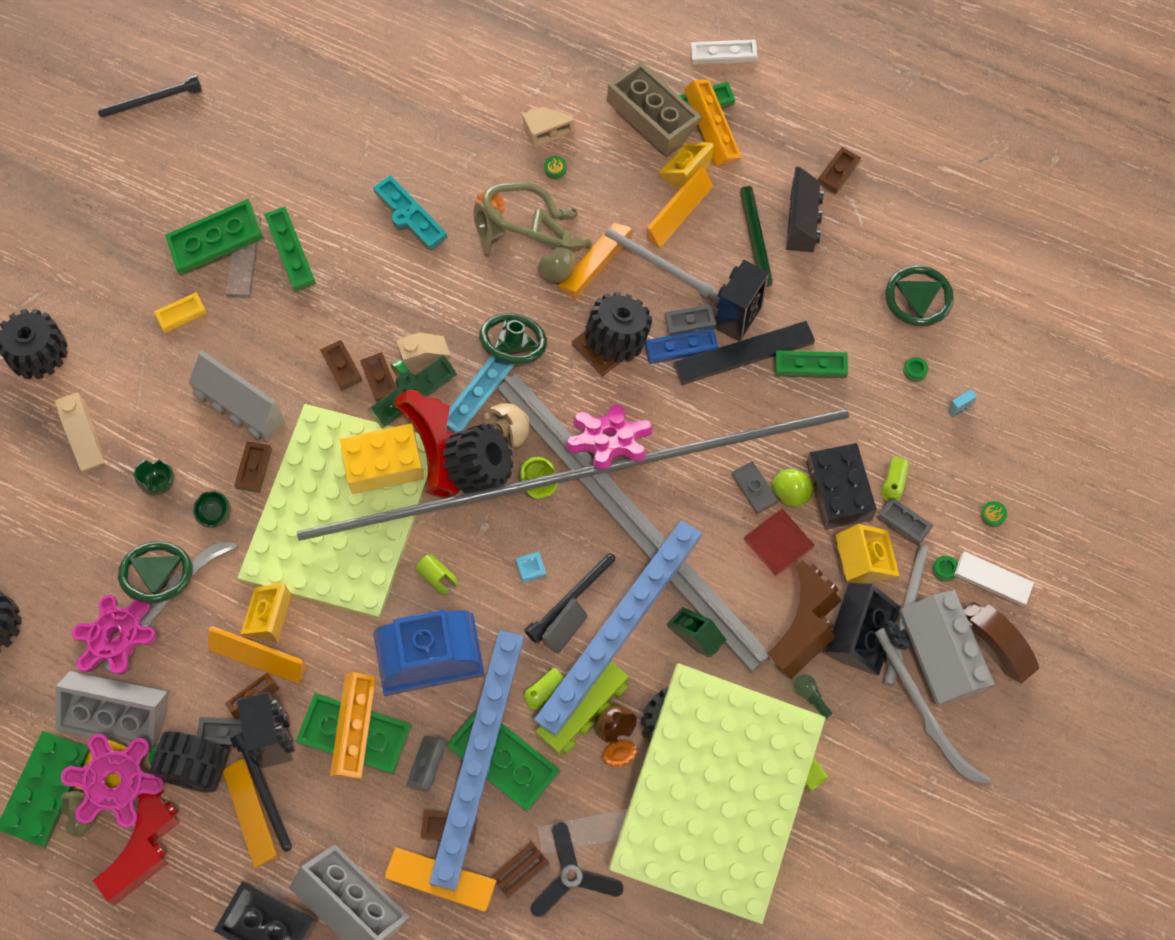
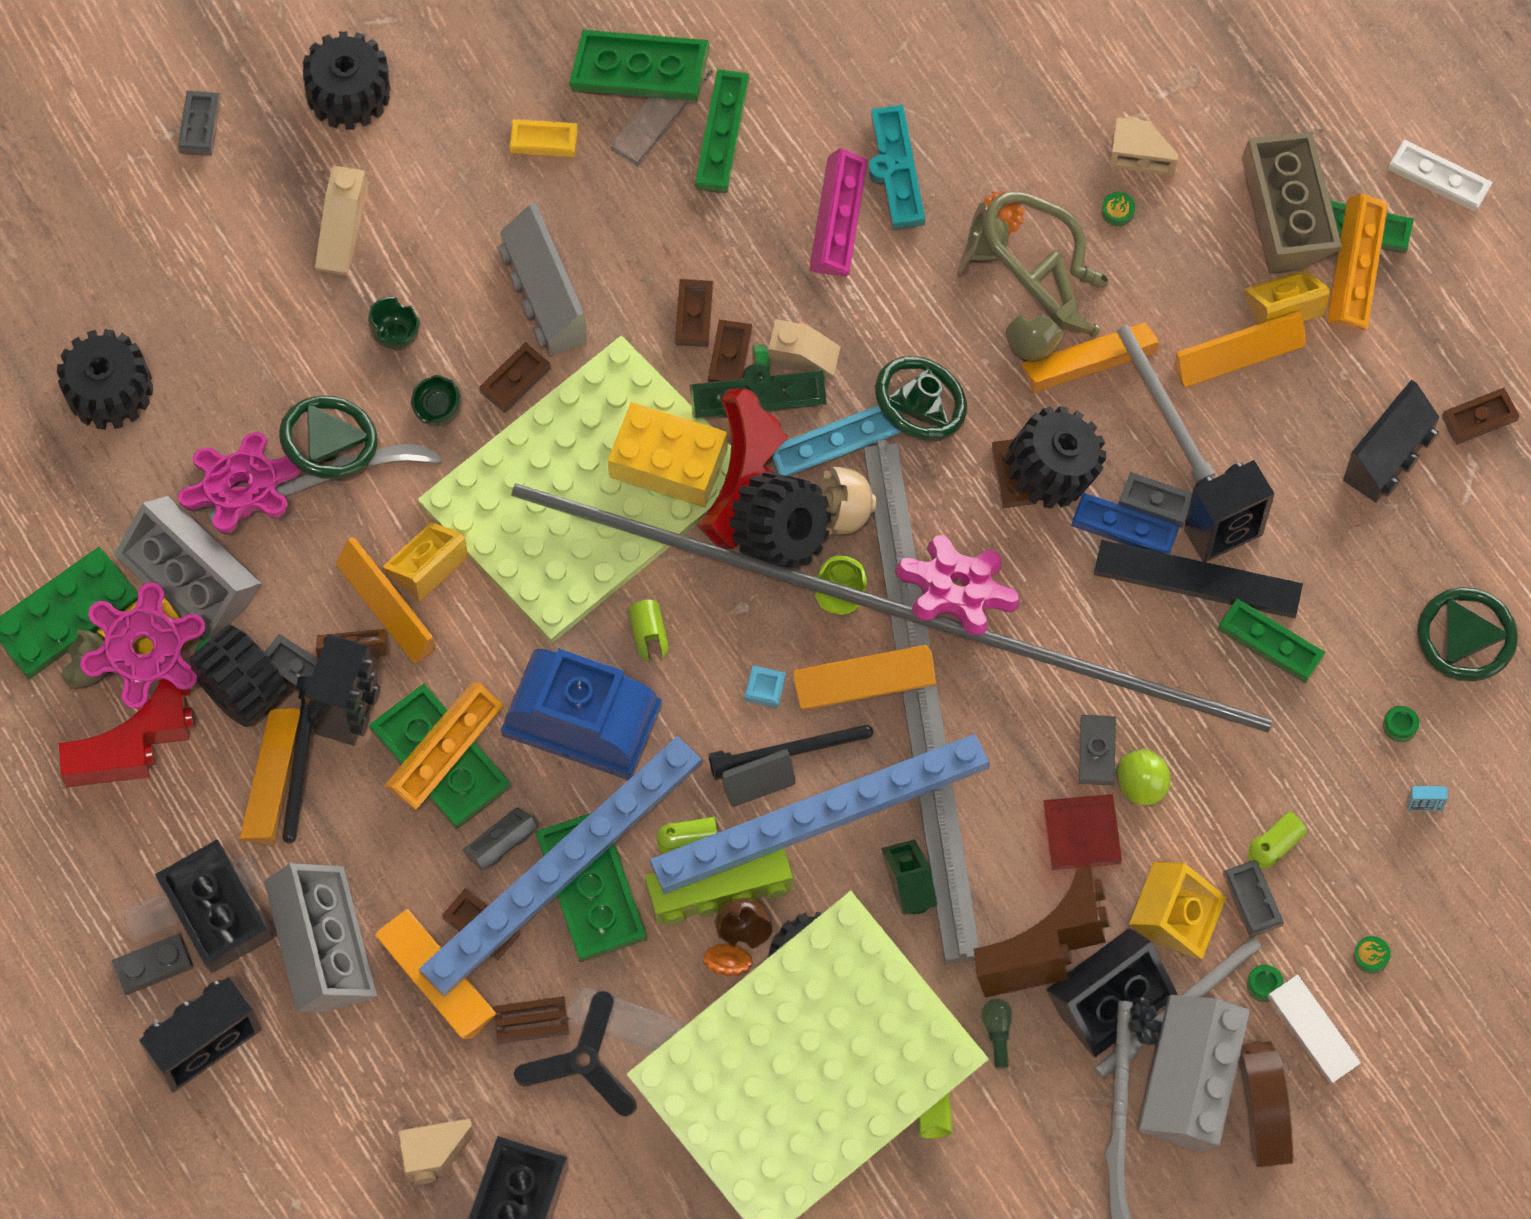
camera: 30 degrees right, 0 degrees up
(391, 259) = (838, 213): none -> dark pink slope
(590, 525) = (865, 677): none -> light orange slope
(755, 231) = (1314, 441): dark green axle -> none
(841, 486) = (1201, 809): black brick -> none

